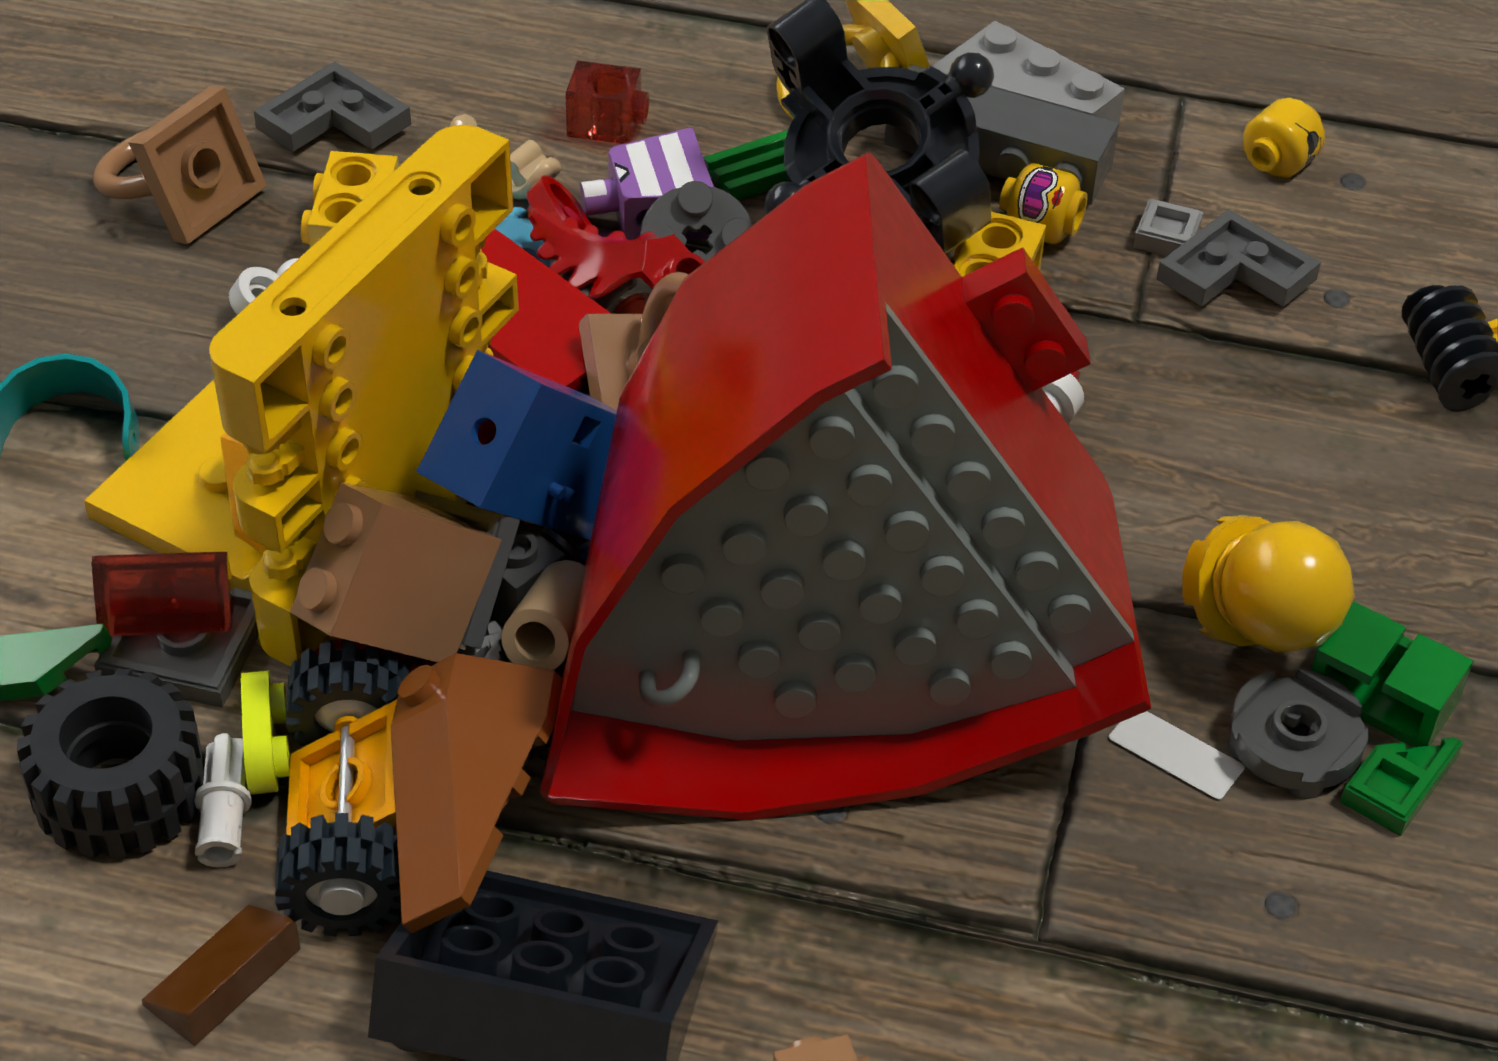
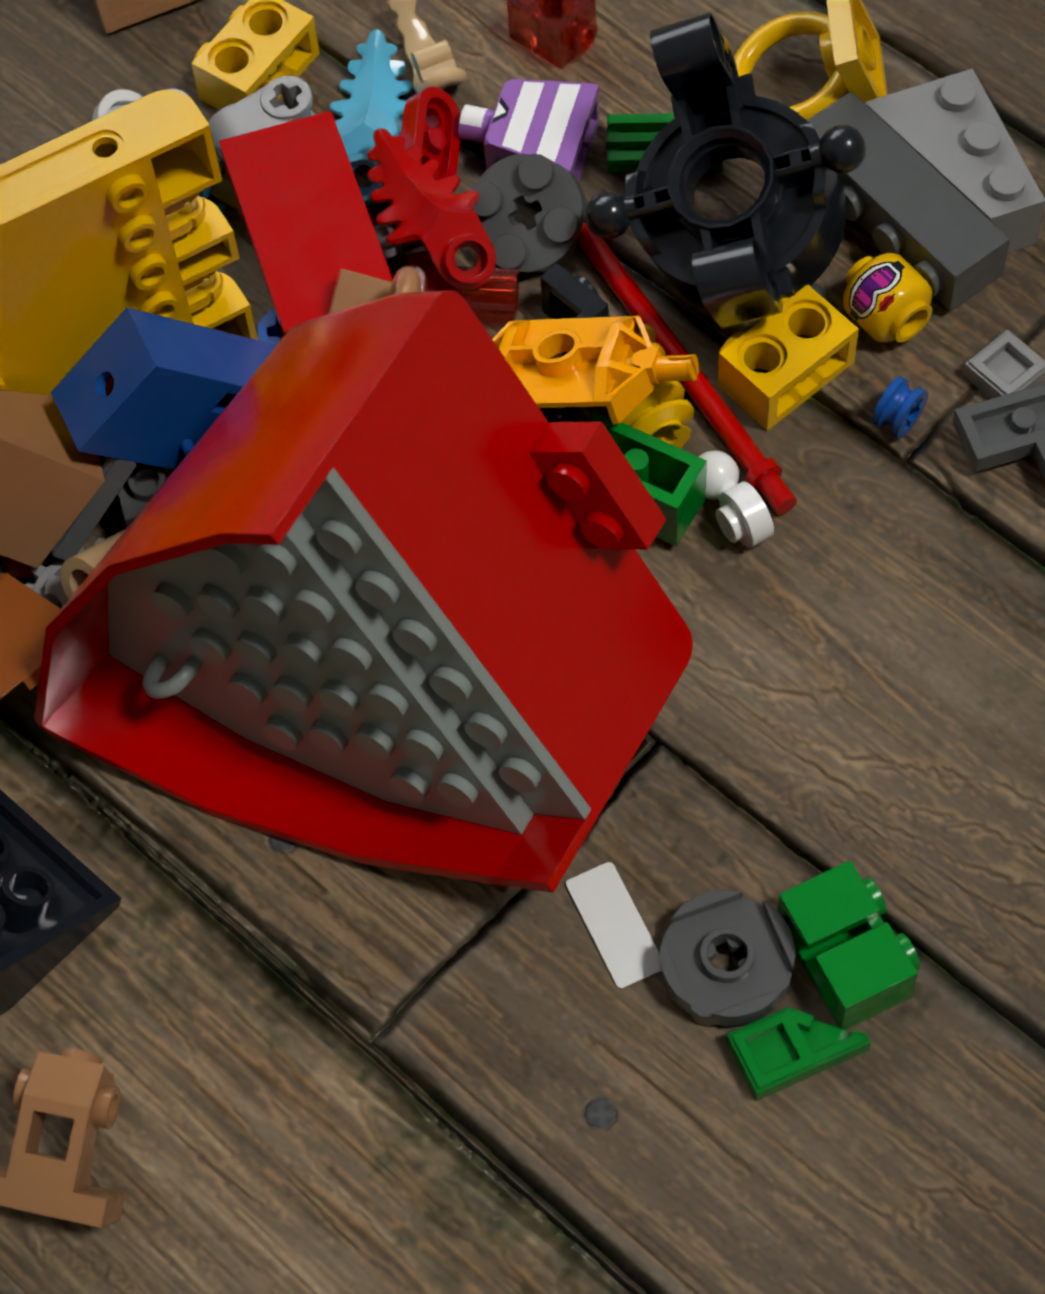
camera: 35 degrees right, 15 degrees up
(1112, 278) = (900, 407): none -> blue bush
(1267, 584) = (772, 809): yellow tile -> none

